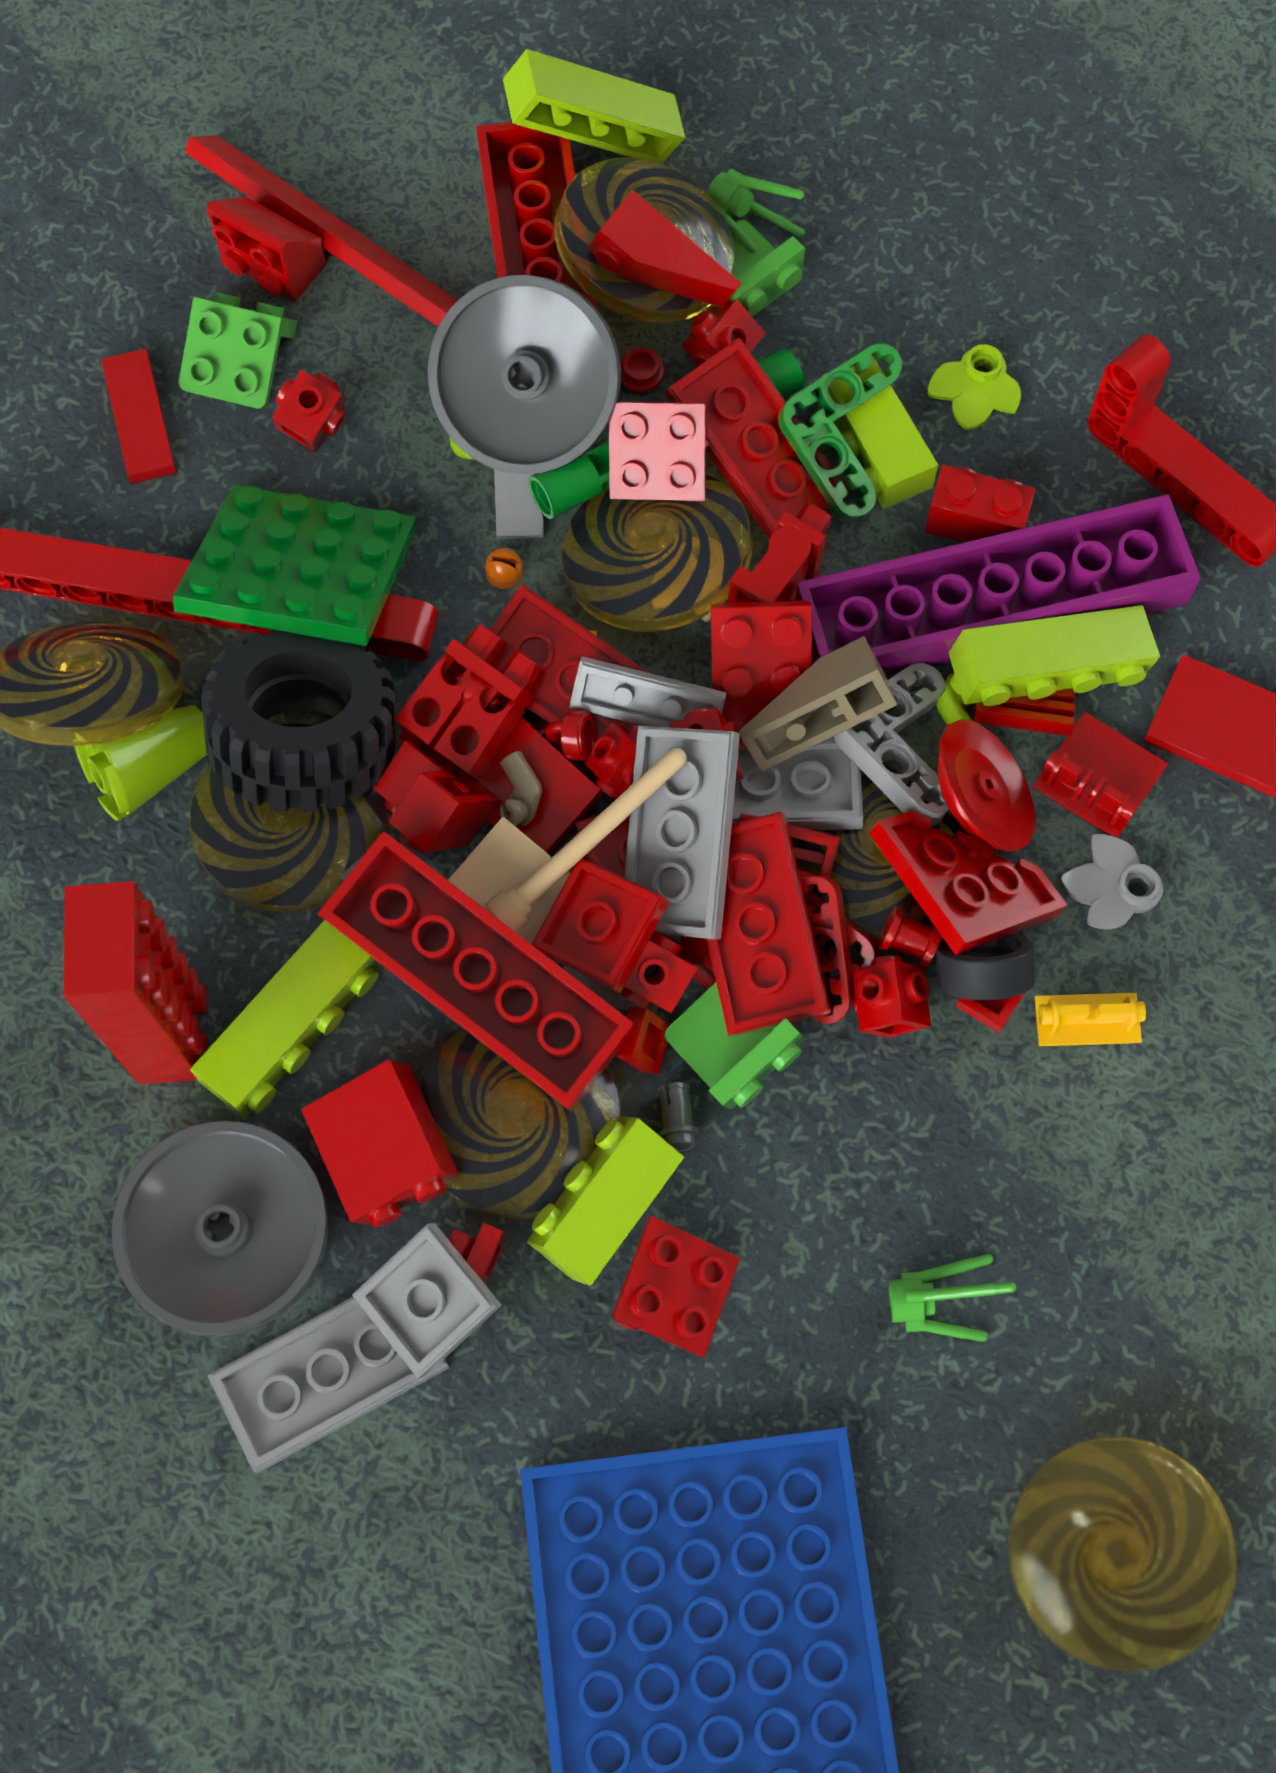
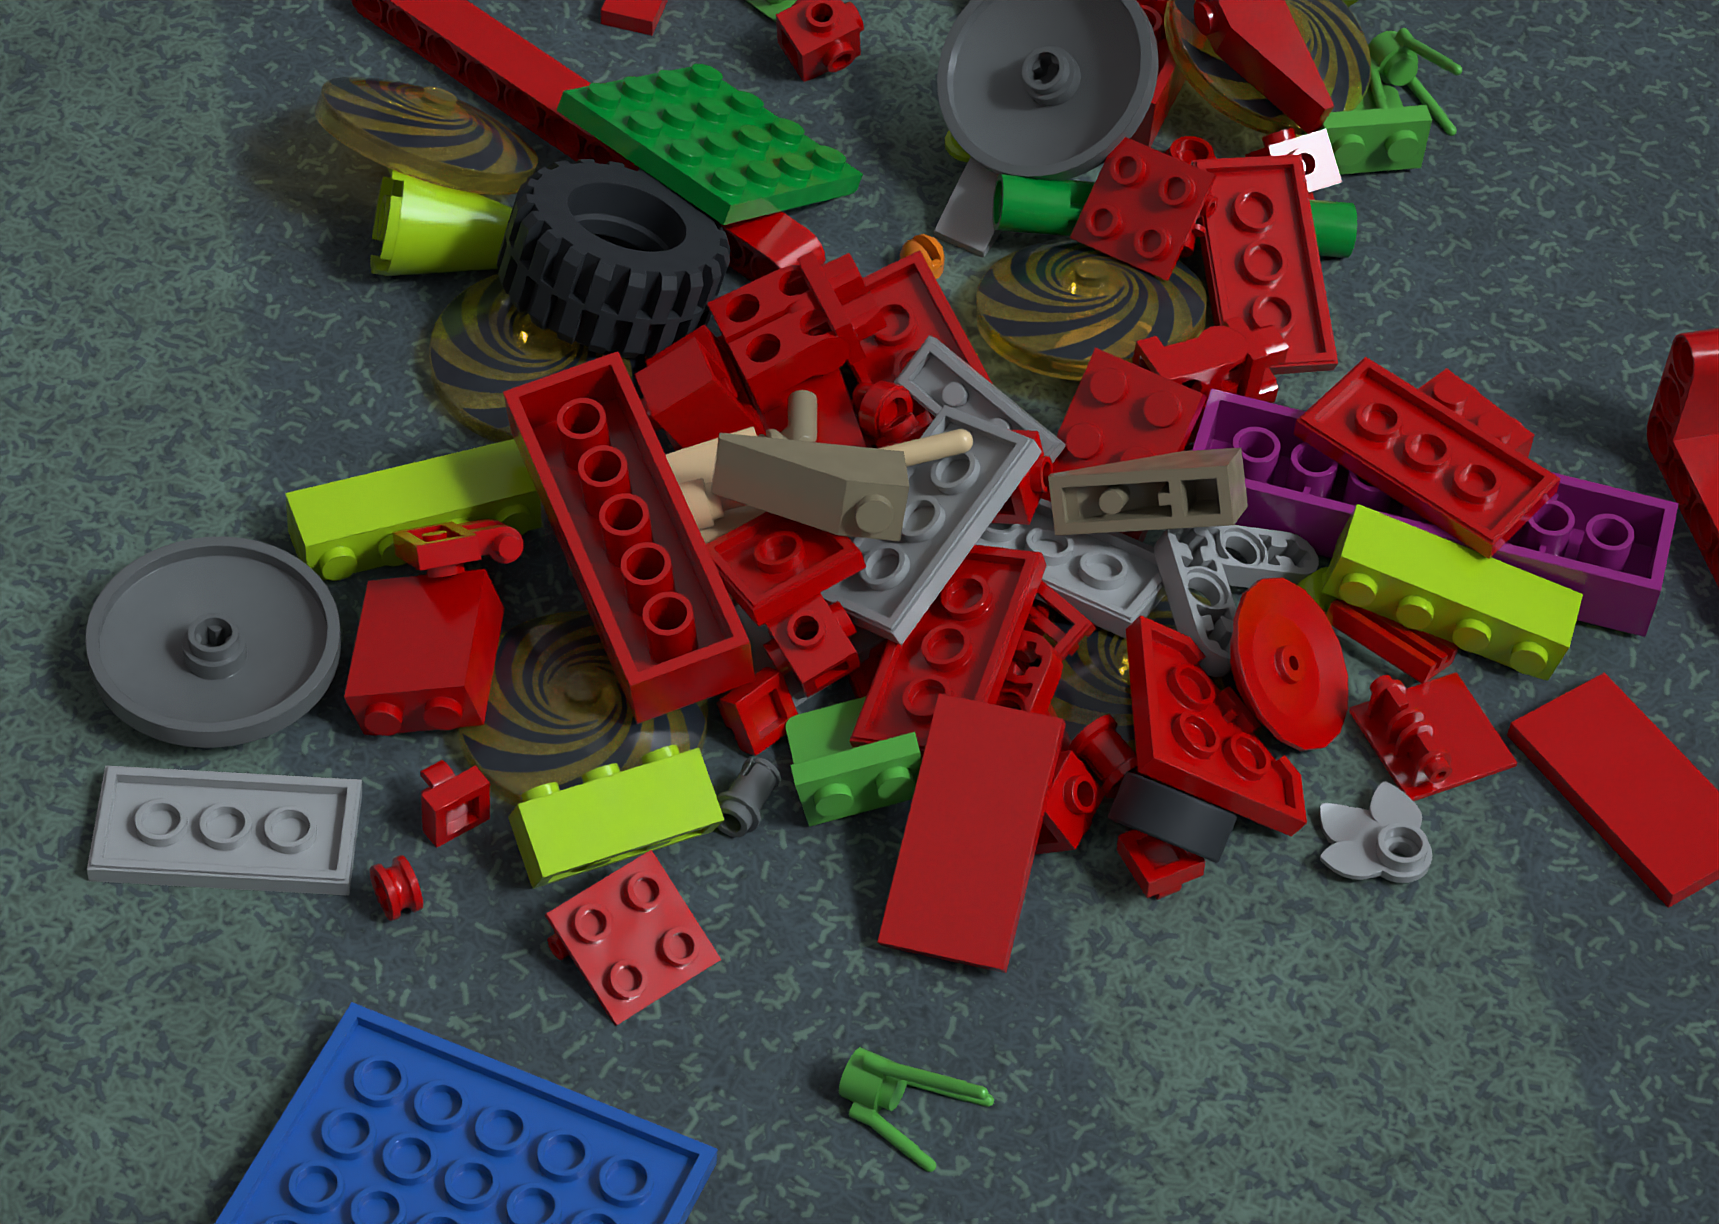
camera: 25 degrees right, 20 degrees down
(132, 982) = (281, 345): red brick -> none
(349, 1051) = (448, 545): none -> red plate
(426, 1300) = (368, 802): light grey tile -> none
(486, 1350) = (396, 887): none -> red bush
(600, 858) = (816, 483): none -> dark tan slope
(824, 431) = (1338, 280): green beam -> none
(865, 1066) = (972, 833): none -> red tile
(885, 442) = (1402, 310): lime brick -> none
(976, 392) = (1545, 339): lime plate -> none
(983, 558) = (1427, 457): none -> red tile
(1089, 1019) = (1256, 941): yellow hinge -> none

